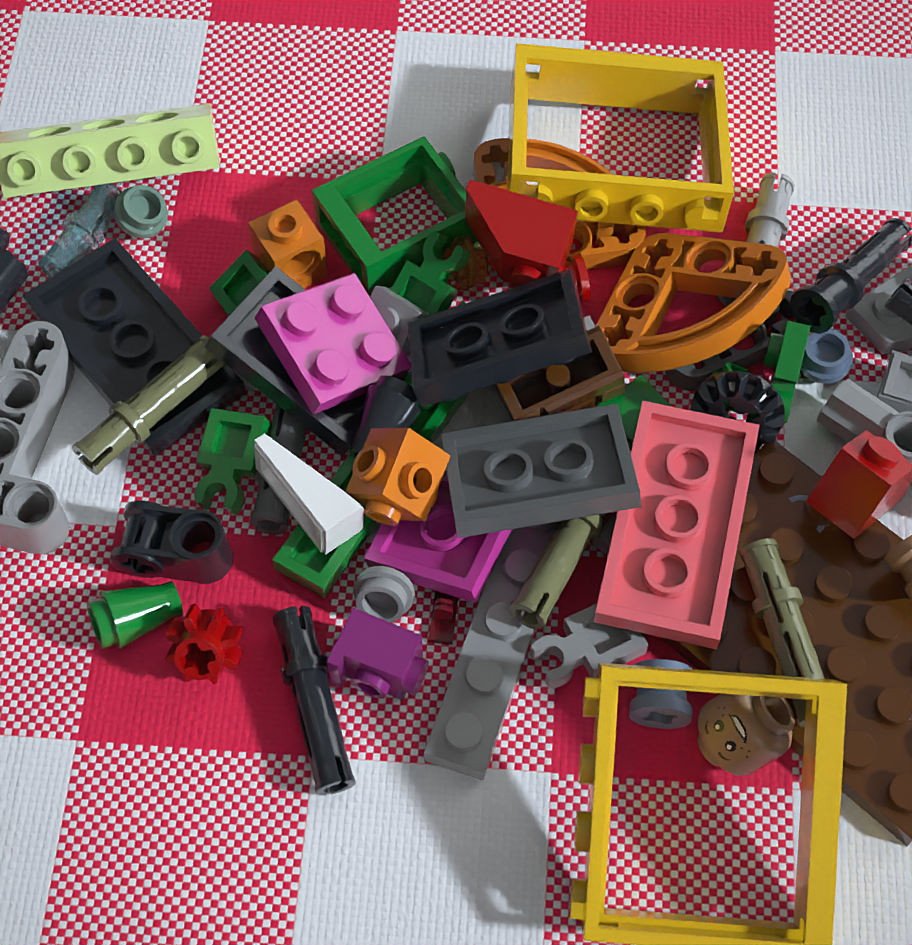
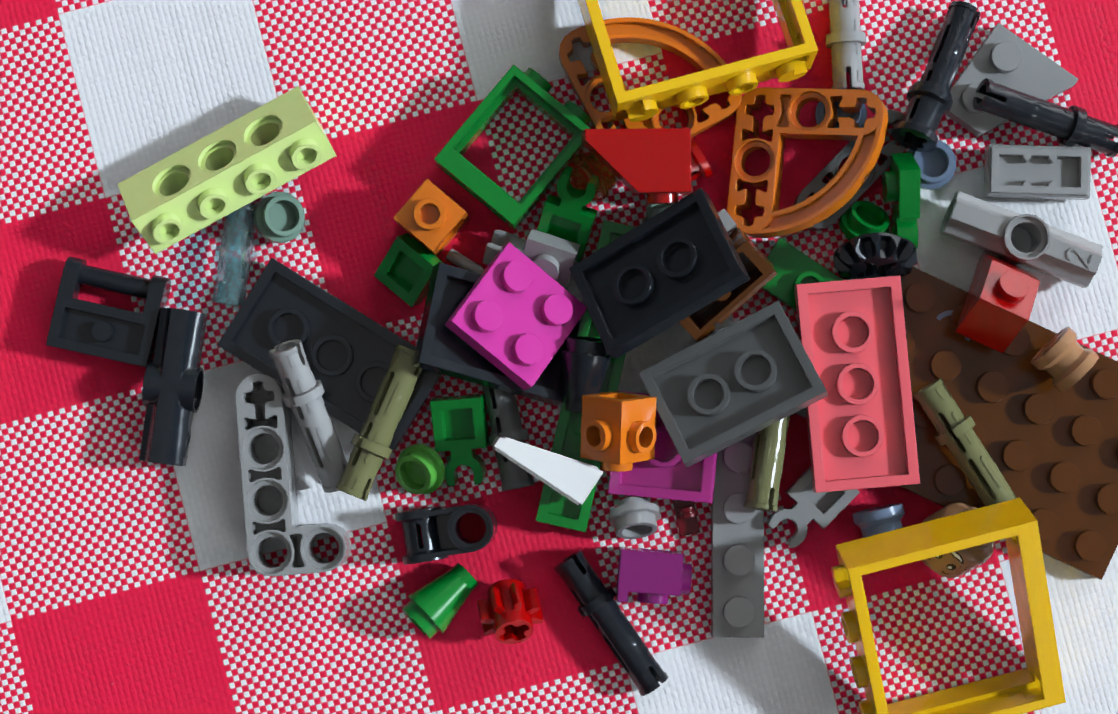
camera: 20 degrees left, 25 degrees up
(83, 369) = (306, 400): none -> light grey pin
(172, 475) = (420, 469): none -> bright green plate

